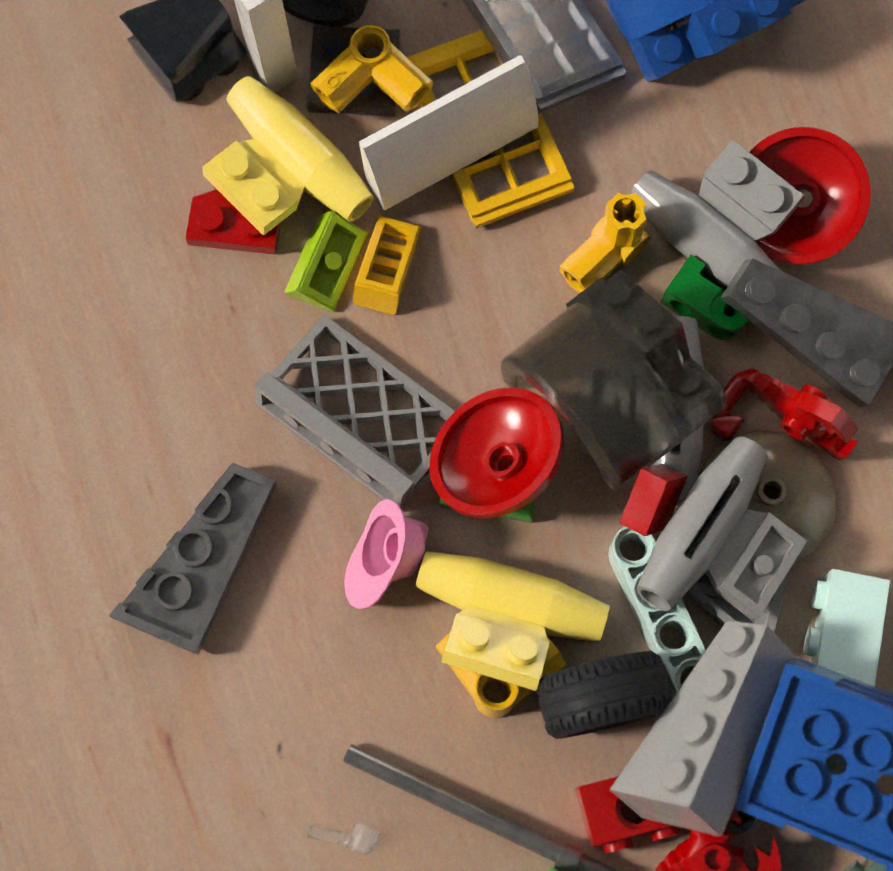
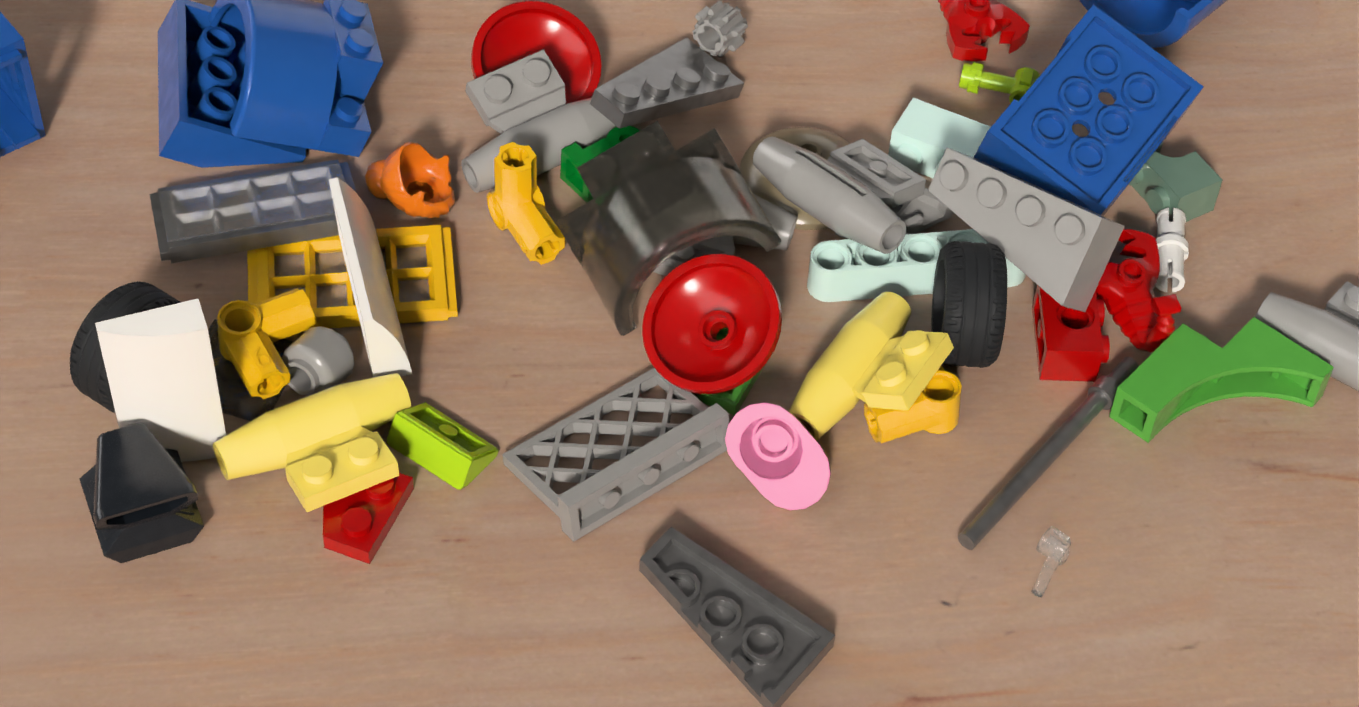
camera: 80 degrees left, 25 degrees down
(366, 119) = (318, 360): none -> light grey head
(378, 290) = (490, 410): yellow slope -> none
(618, 124) = (413, 181): none -> orange piece
(653, 499) = (796, 223): red piece -> none
(803, 412) = (739, 112): red animal -> none

